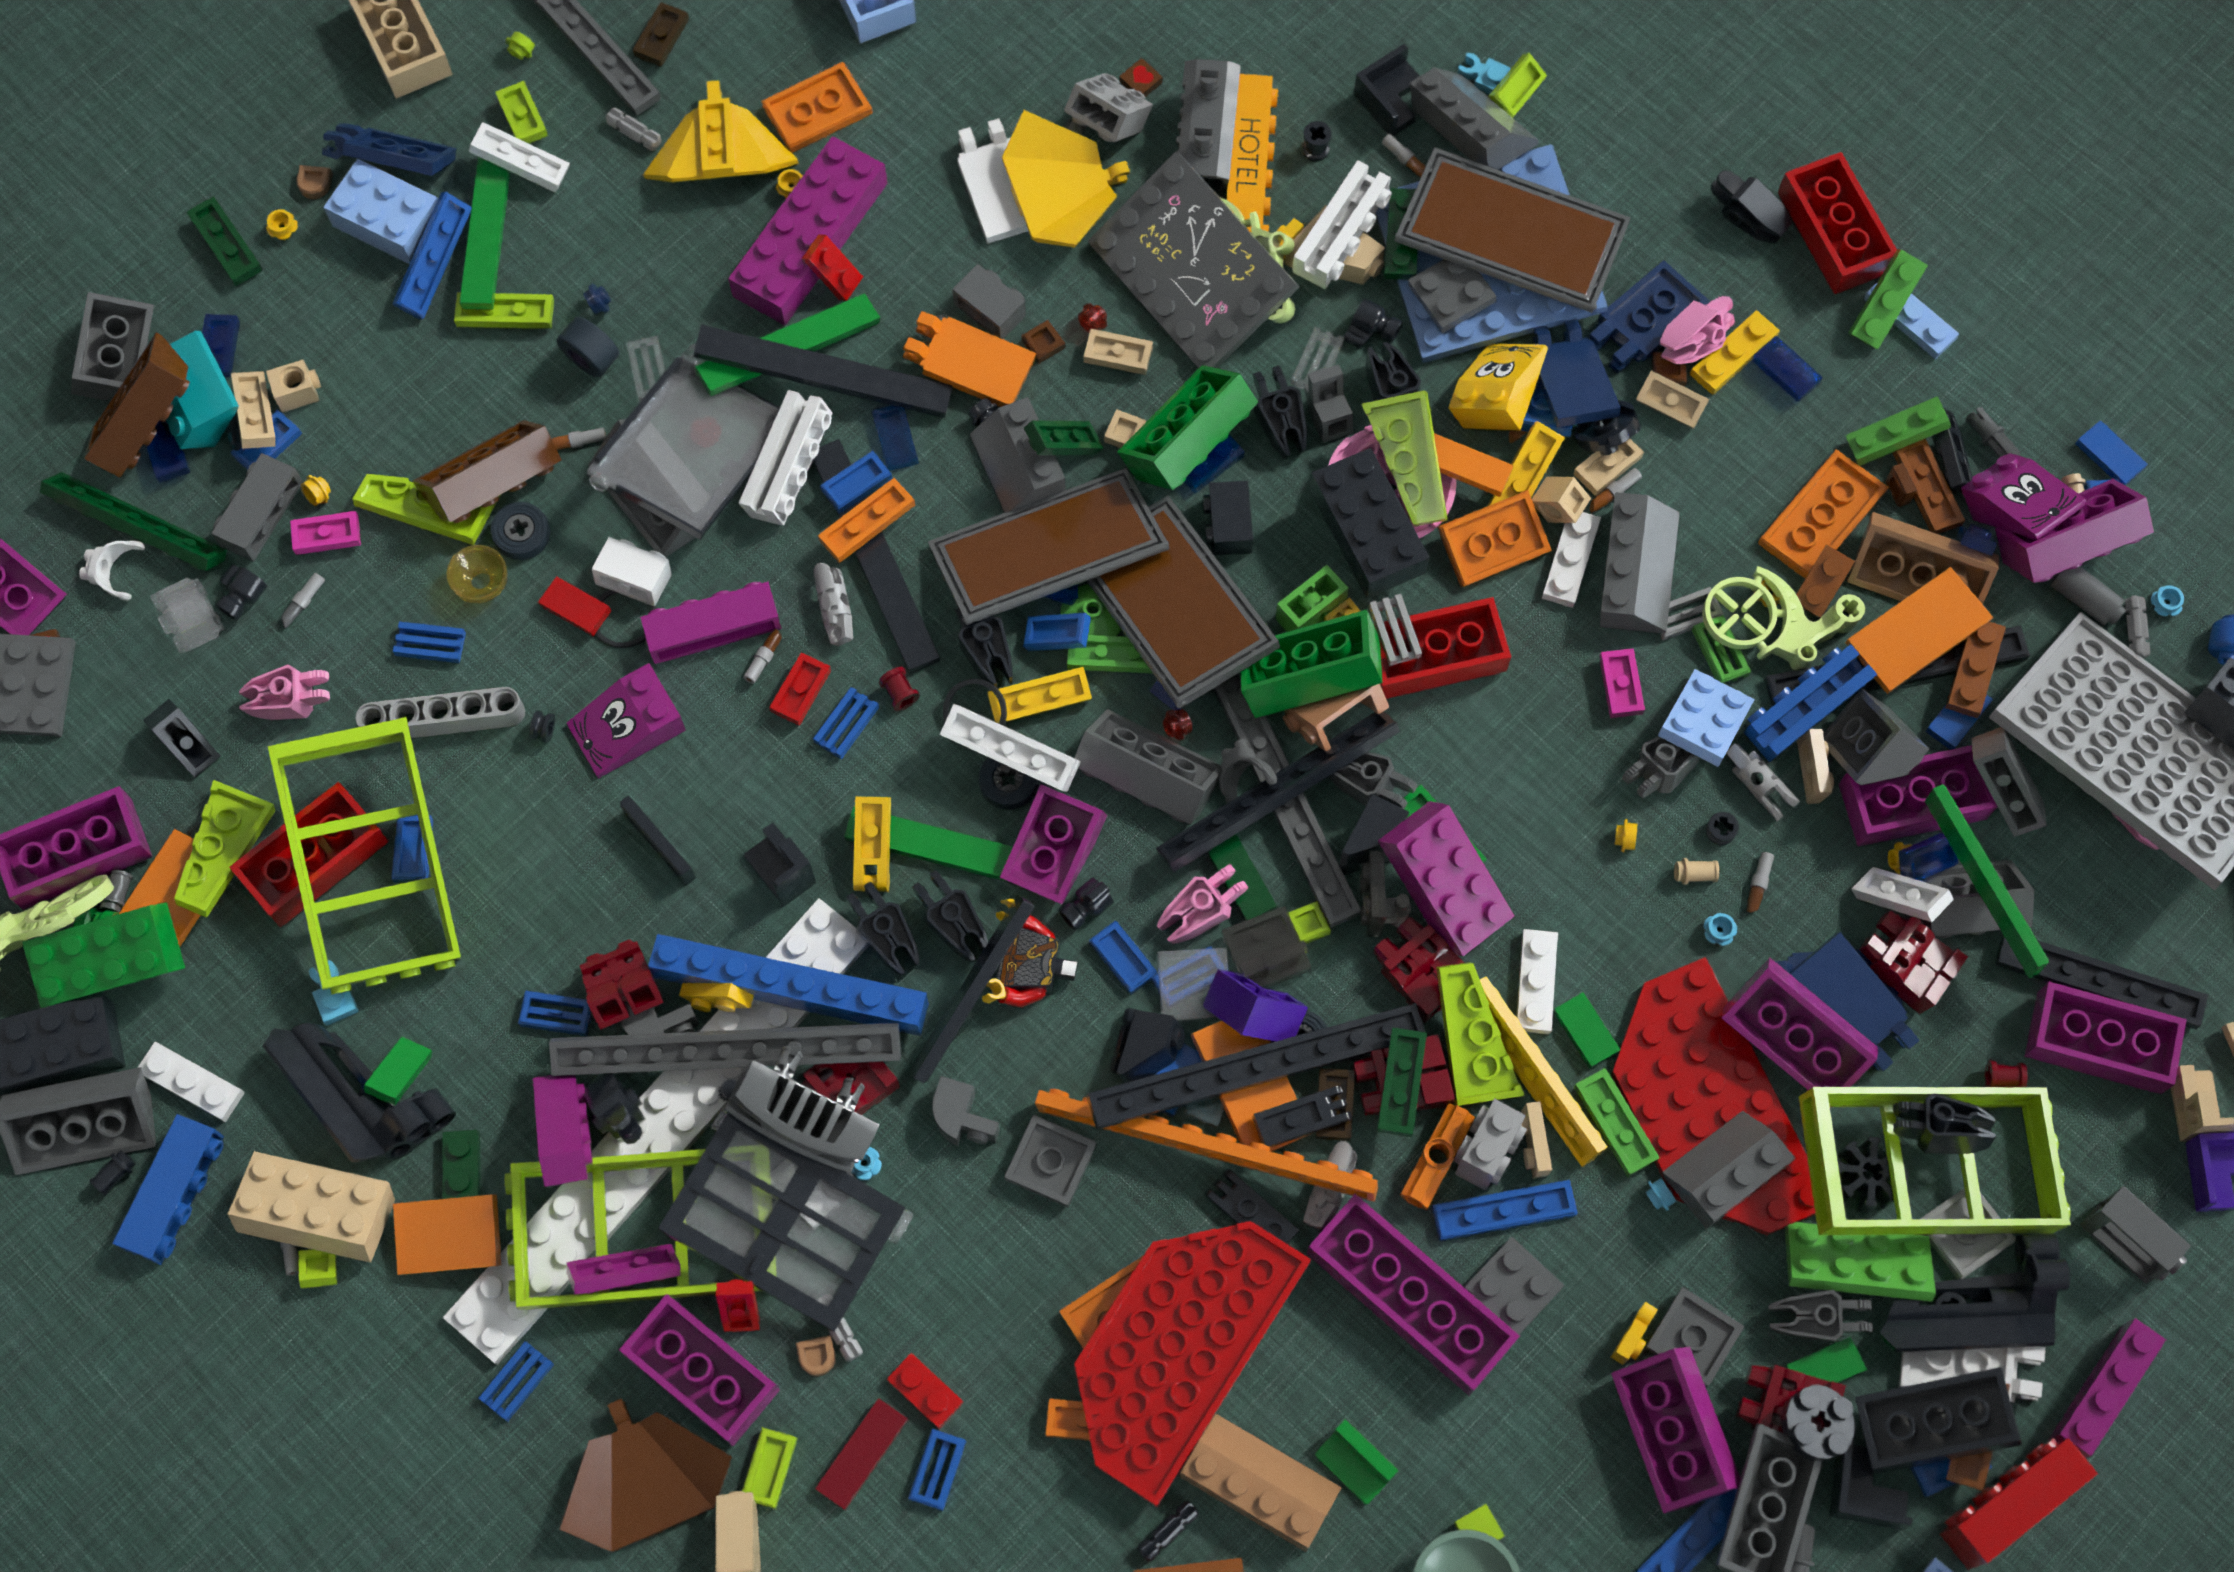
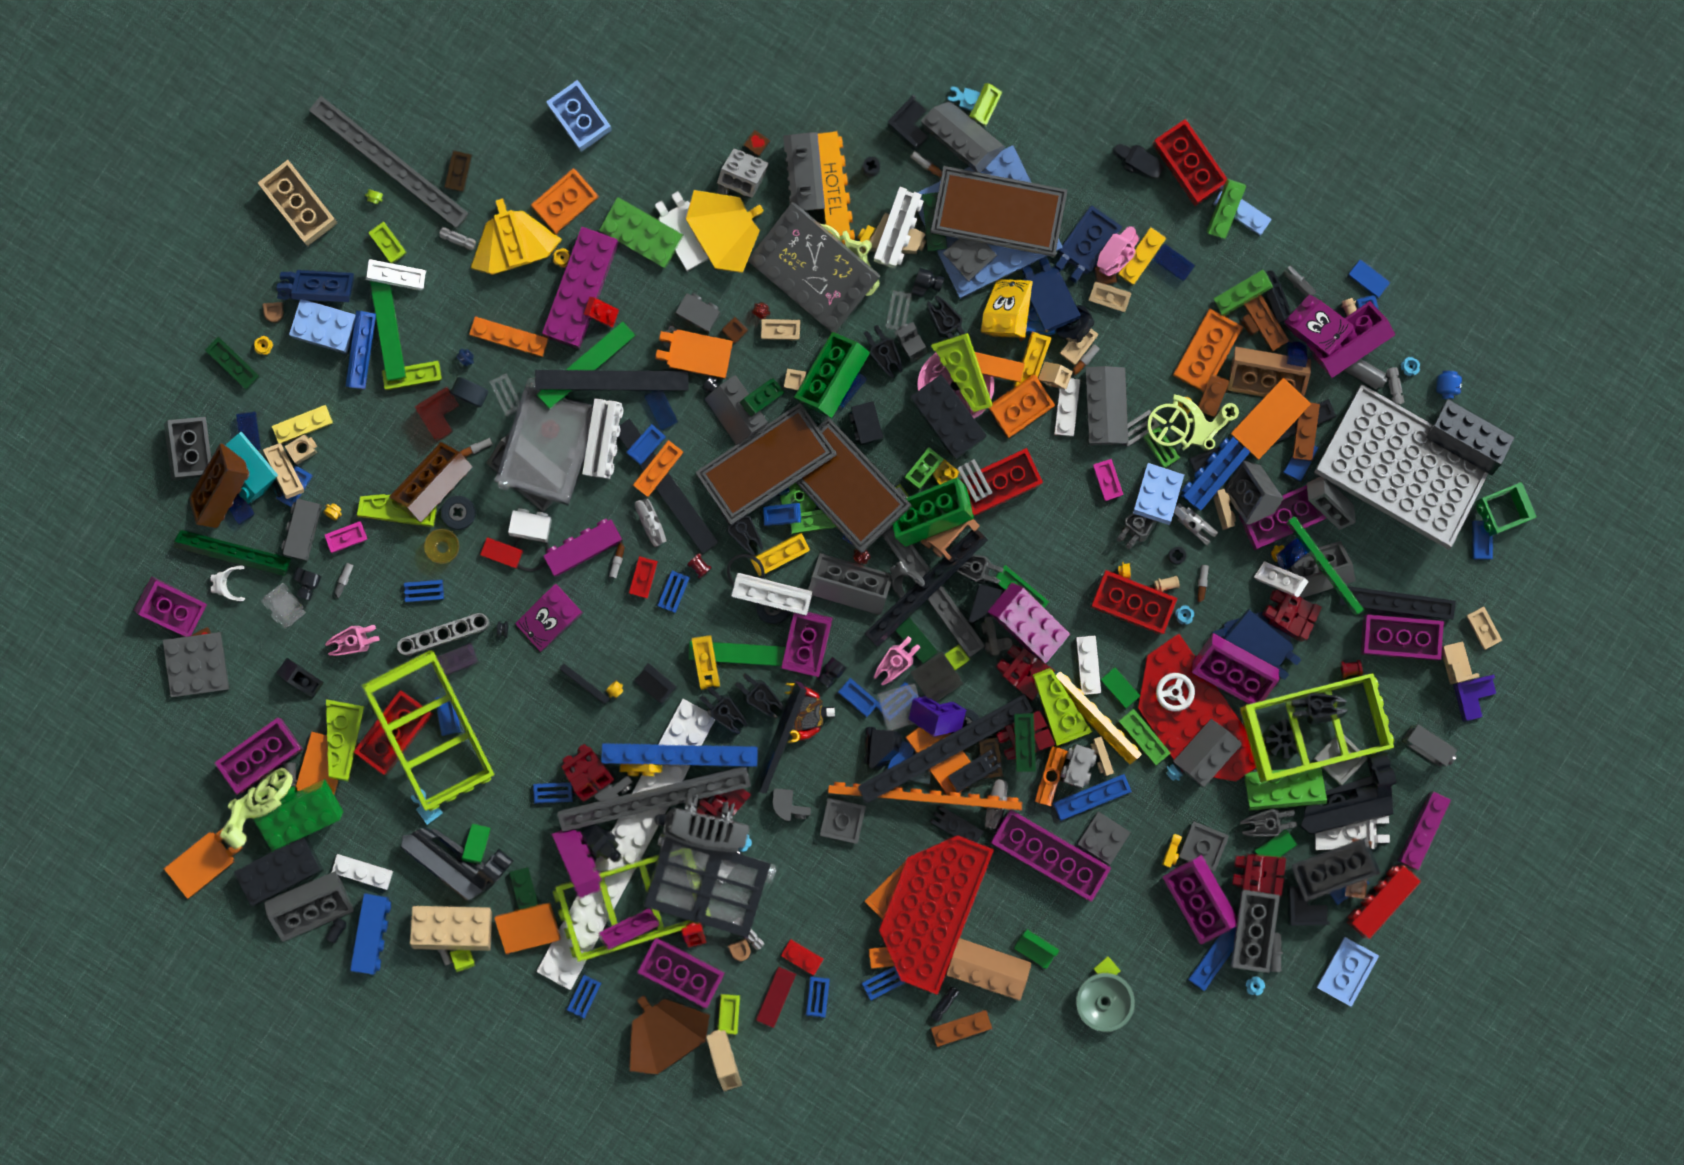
camera: 15 degrees left, 15 degrees up
(316, 350) = (302, 424): none -> light yellow plate
(453, 763) = (458, 659): none -> clear purple hinge
(525, 365) = (432, 412): none -> clear red panel
(676, 284) = (508, 336): none -> orange plate
(706, 860) = (615, 689): none -> yellow plate
(929, 169) = (641, 232): none -> bright green plate
(1058, 1454) = (868, 990): none -> blue tile
(1634, 887) = (1133, 602): none -> red brick
(1680, 1060) = (1180, 678): none -> white piece
(1837, 1419) = (1266, 890): plate -> none

